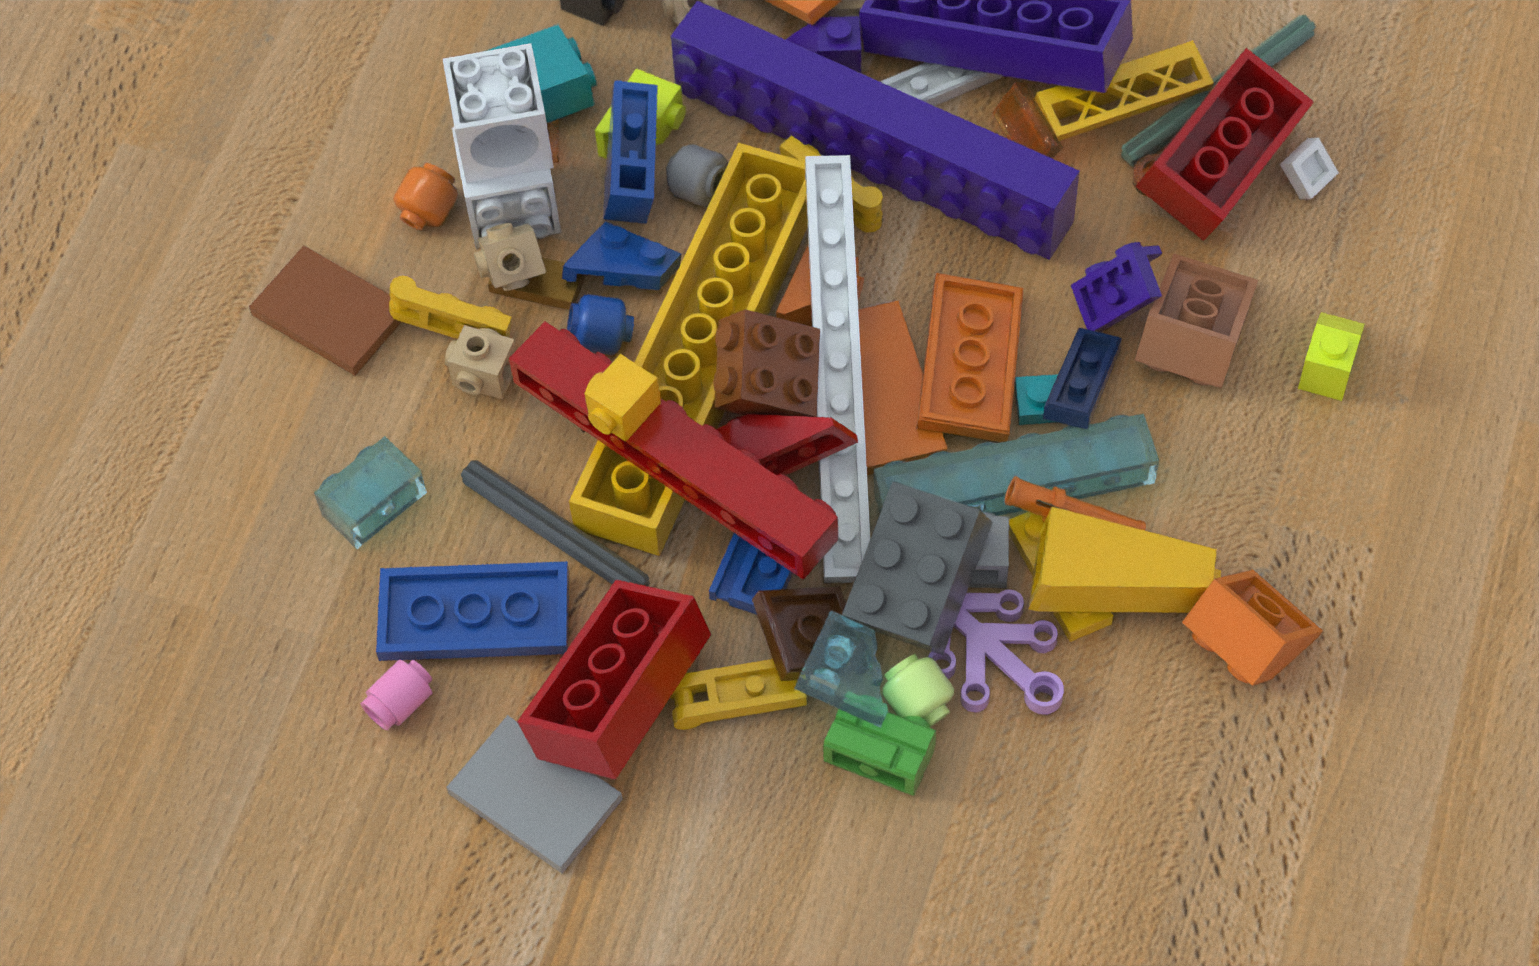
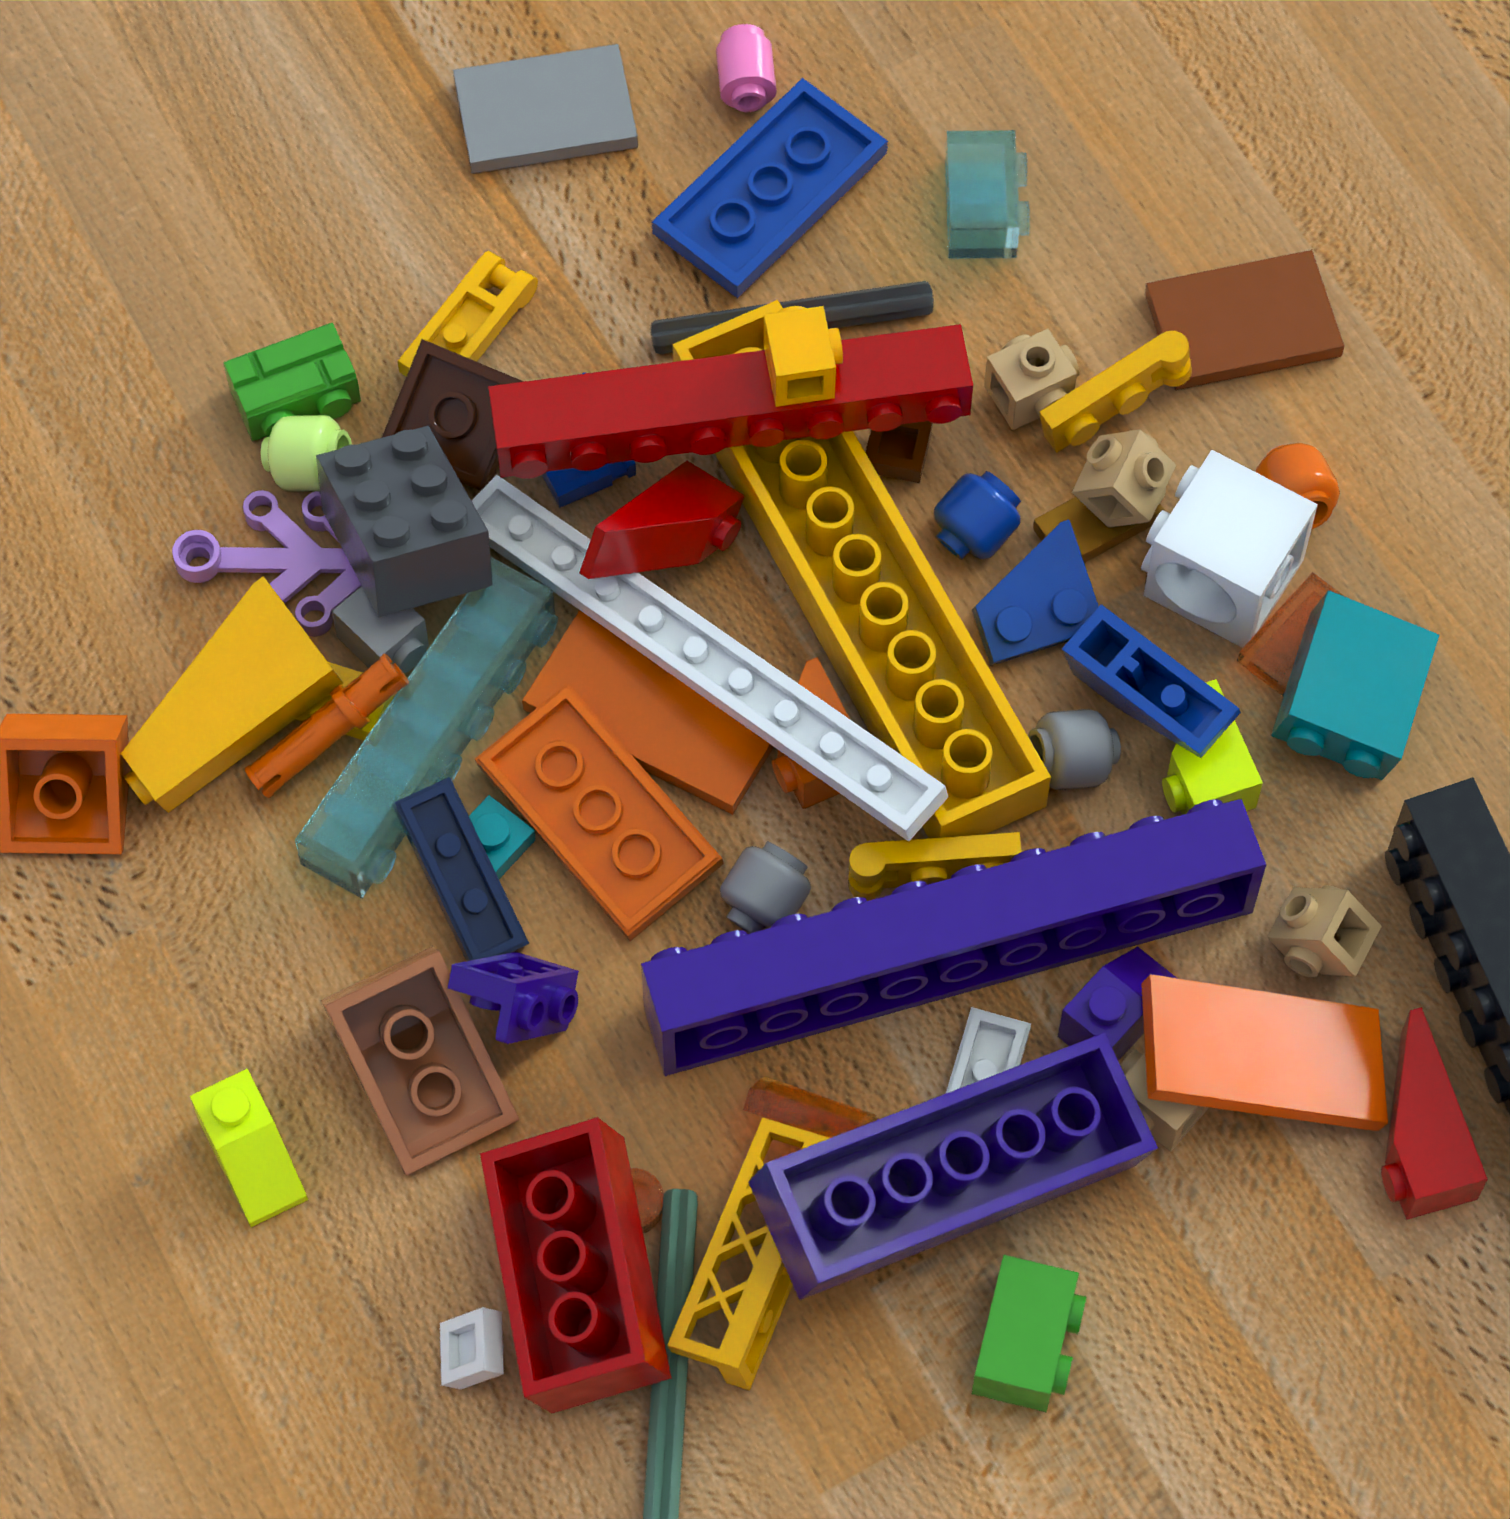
camera: 130 degrees right, 5 degrees up
(498, 113) = (1259, 507): white brick -> none
(615, 678) = (562, 207): red brick -> none
(766, 366) = (743, 563): dark orange brick -> none
(845, 670) = (372, 381): clear light blue wing -> none
(930, 243) = (764, 887): none -> light grey head

